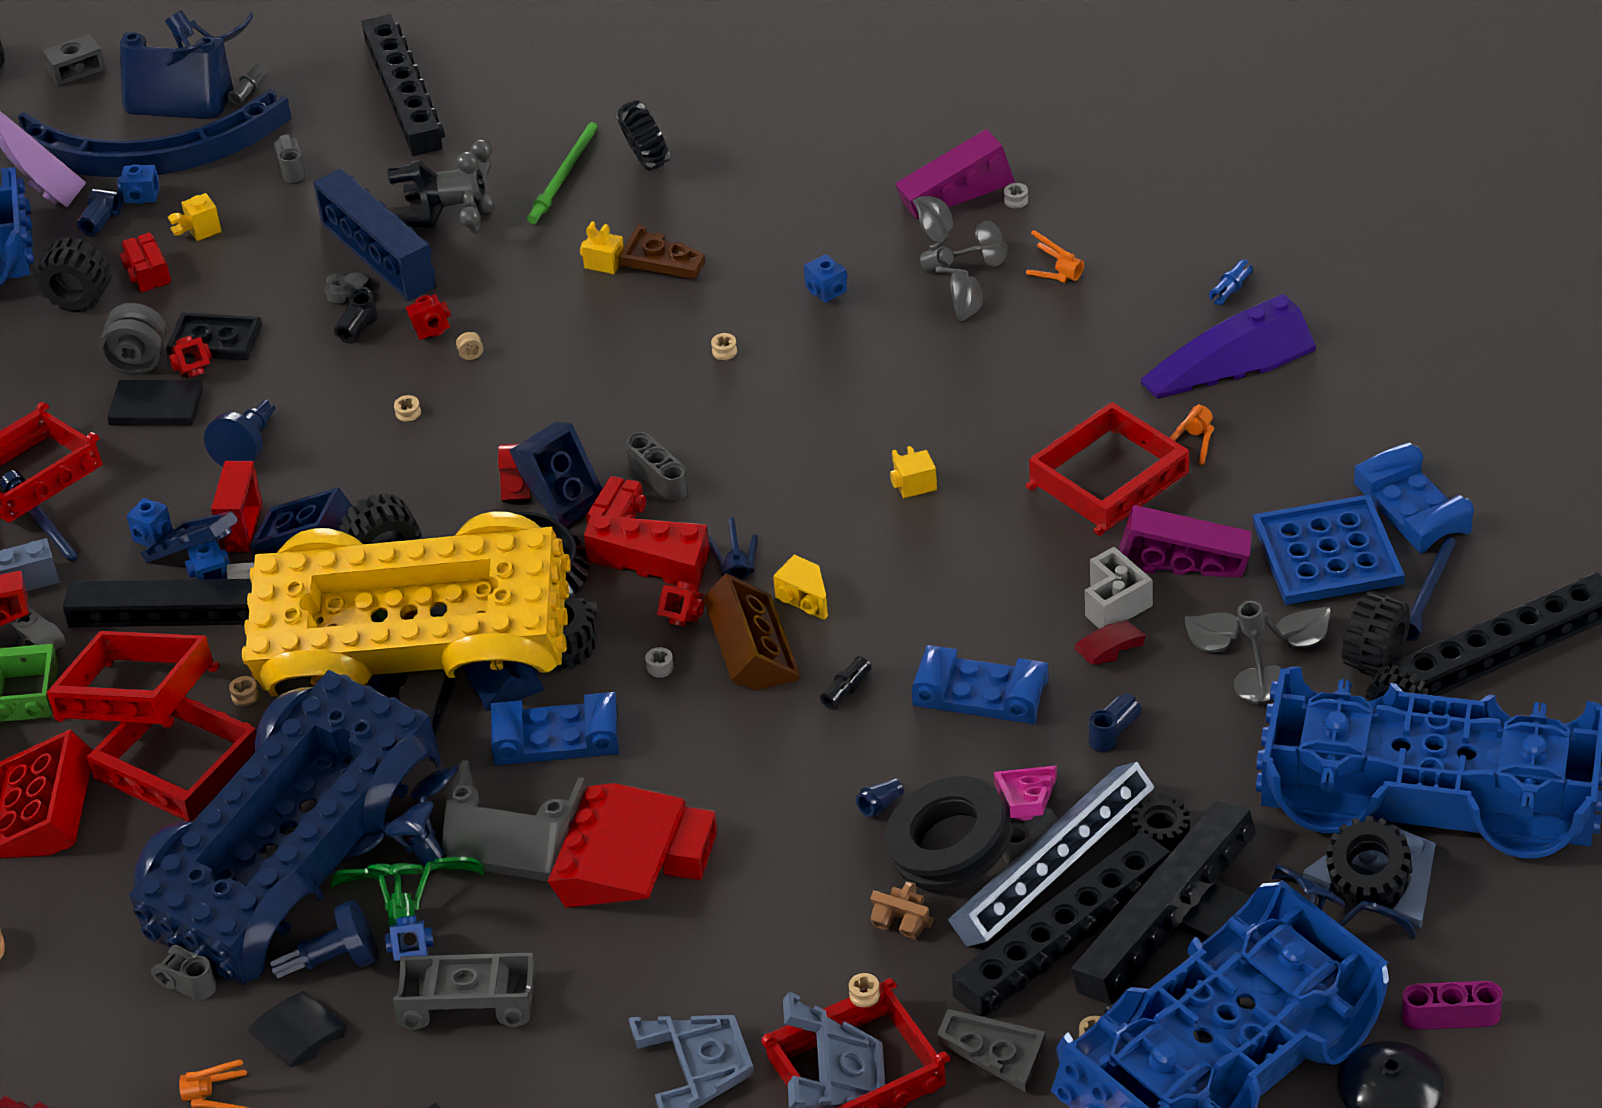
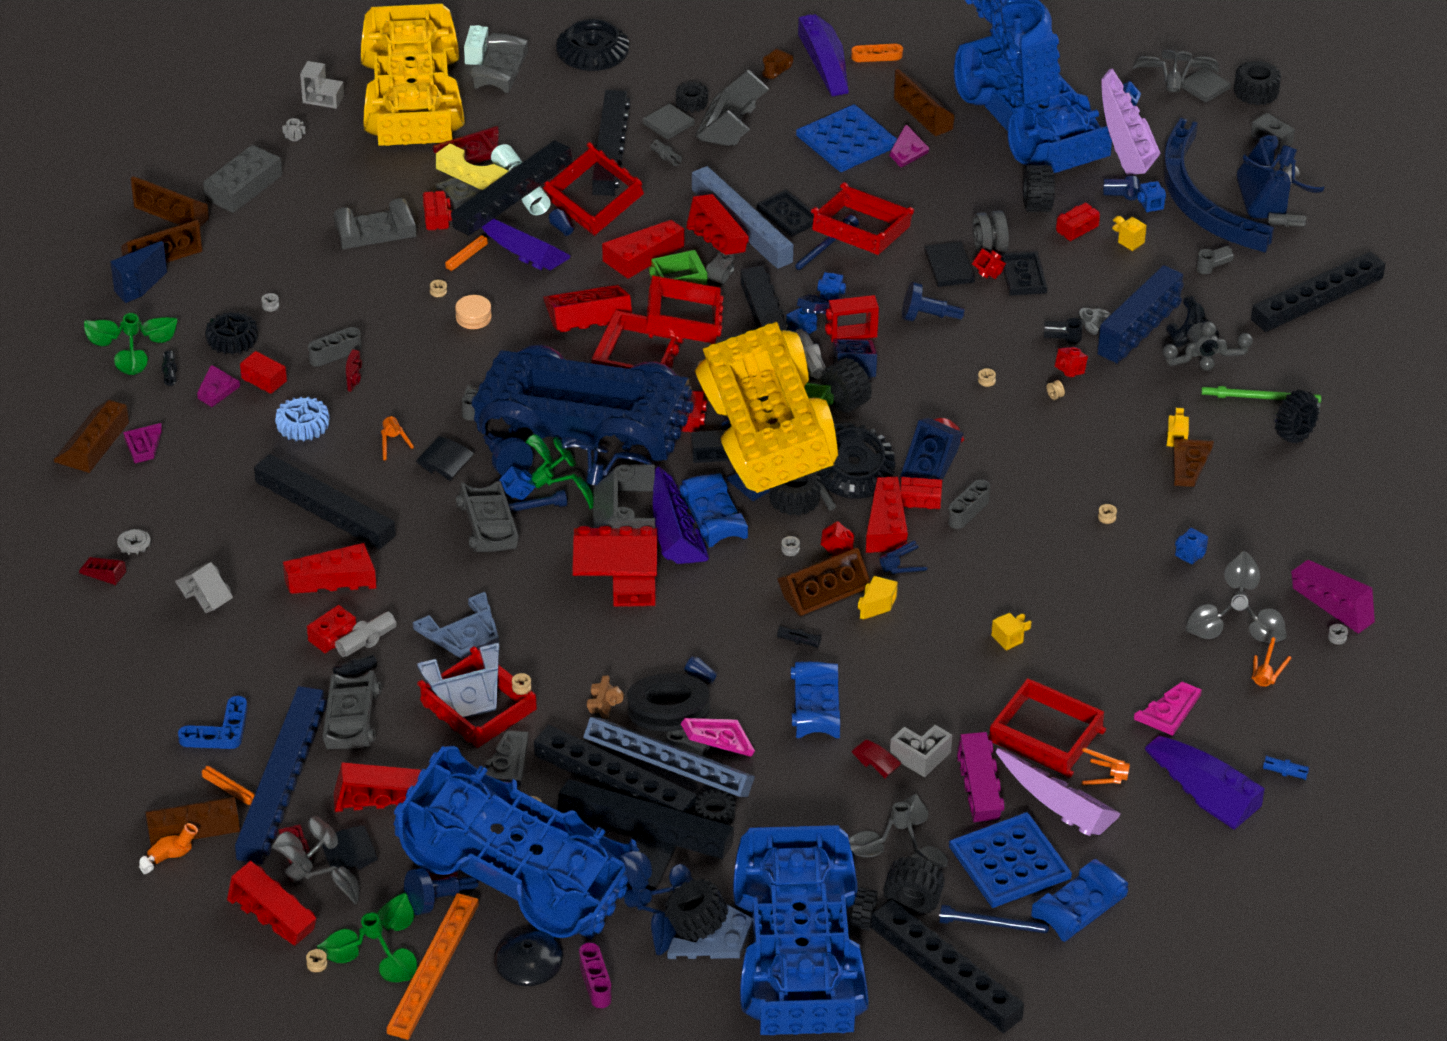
camera: 70 degrees right, 0 degrees up
(453, 903) = (558, 499): none -> dark blue piece
(562, 772) = (673, 524): none -> dark purple wedge
(1102, 357) = (1171, 709): none -> dark pink wing
(1110, 722) = (794, 768): dark blue piece -> none
(1240, 475) = (1071, 804): none -> lavender wedge

